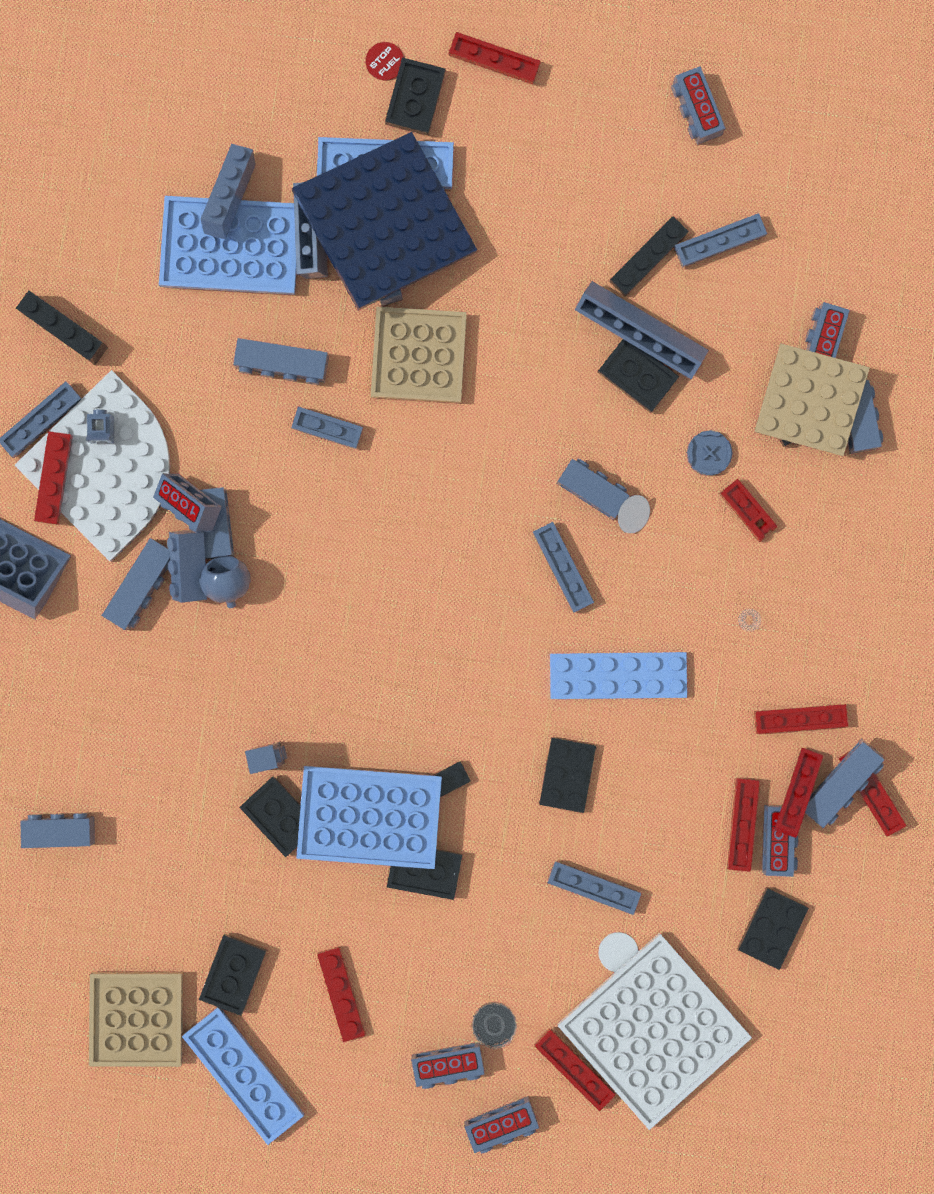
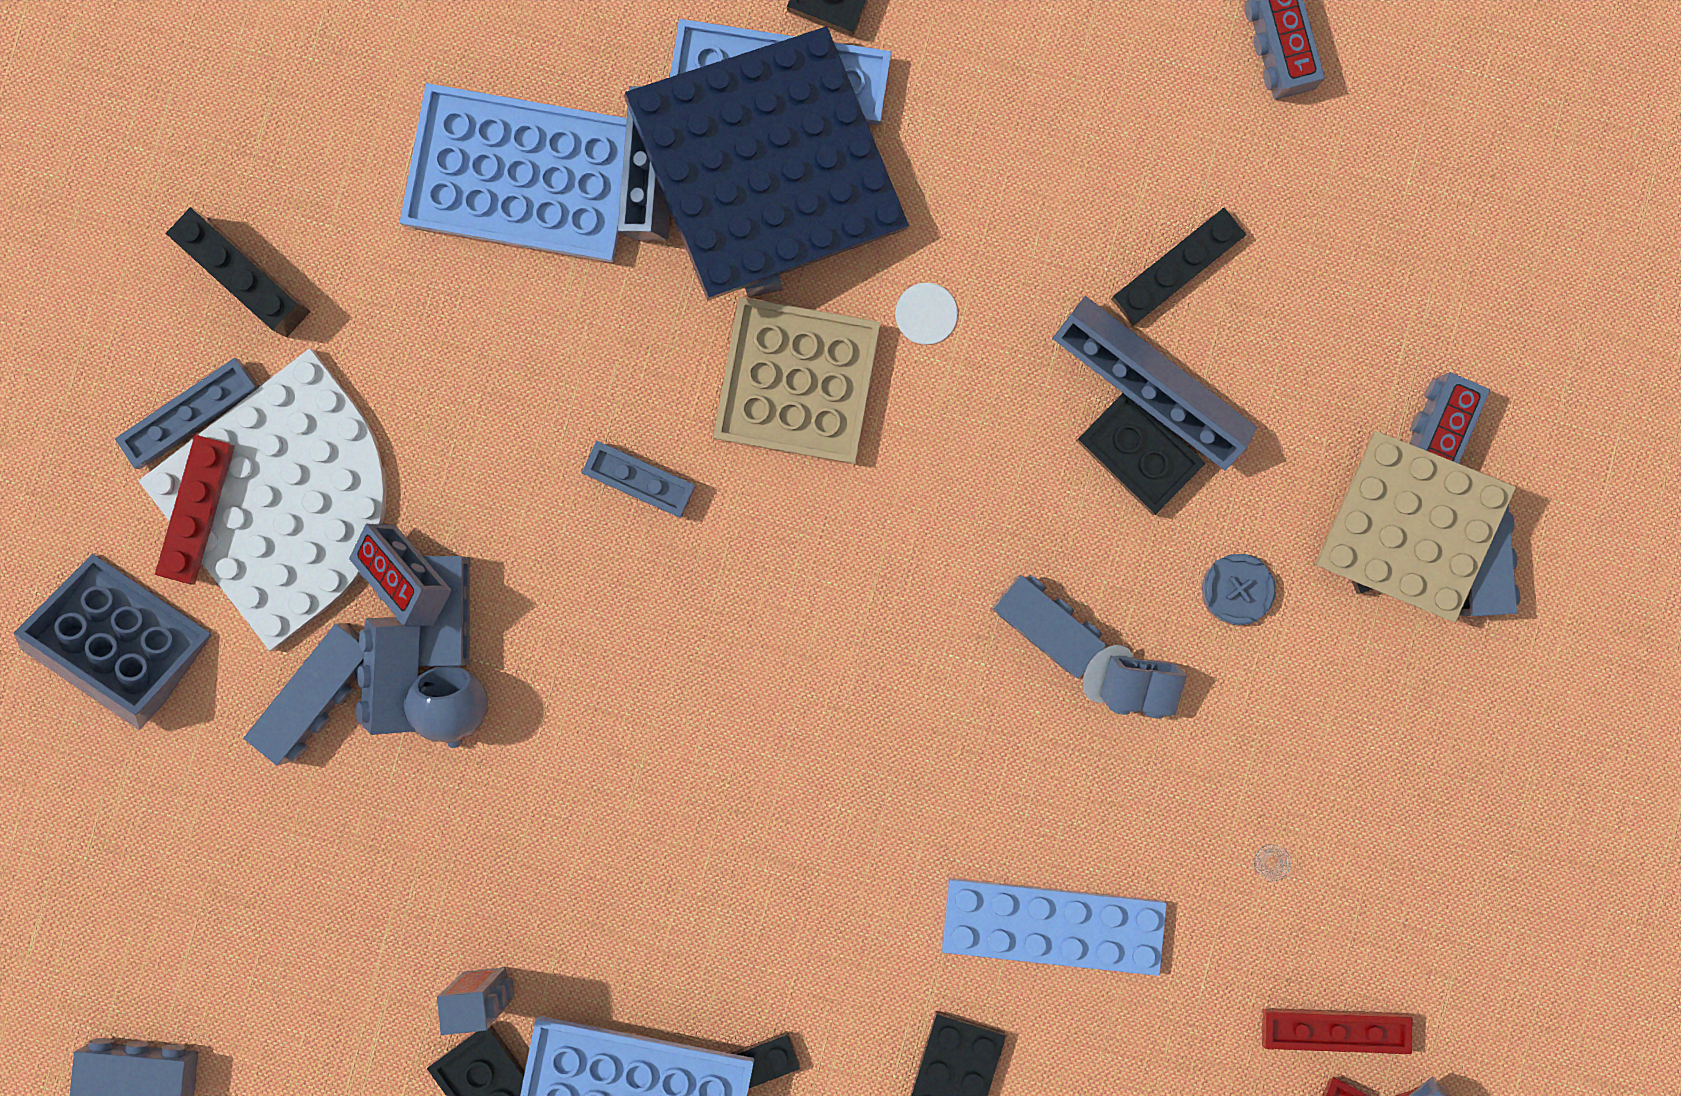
camera: 10 degrees right, 0 degrees up
(100, 427) = (277, 438): sand blue window -> none
(228, 191) = (524, 87): sand blue brick -> none
(281, 360) = (577, 364): sand blue brick -> none
(494, 303) = (926, 313): none -> white sticker
(563, 567) = (986, 744): sand blue plate -> none
(655, 519) = (1143, 686): none -> sand blue brick
(720, 240) = (1295, 254): sand blue plate -> none
(748, 509) = (1290, 686): red plate -> none

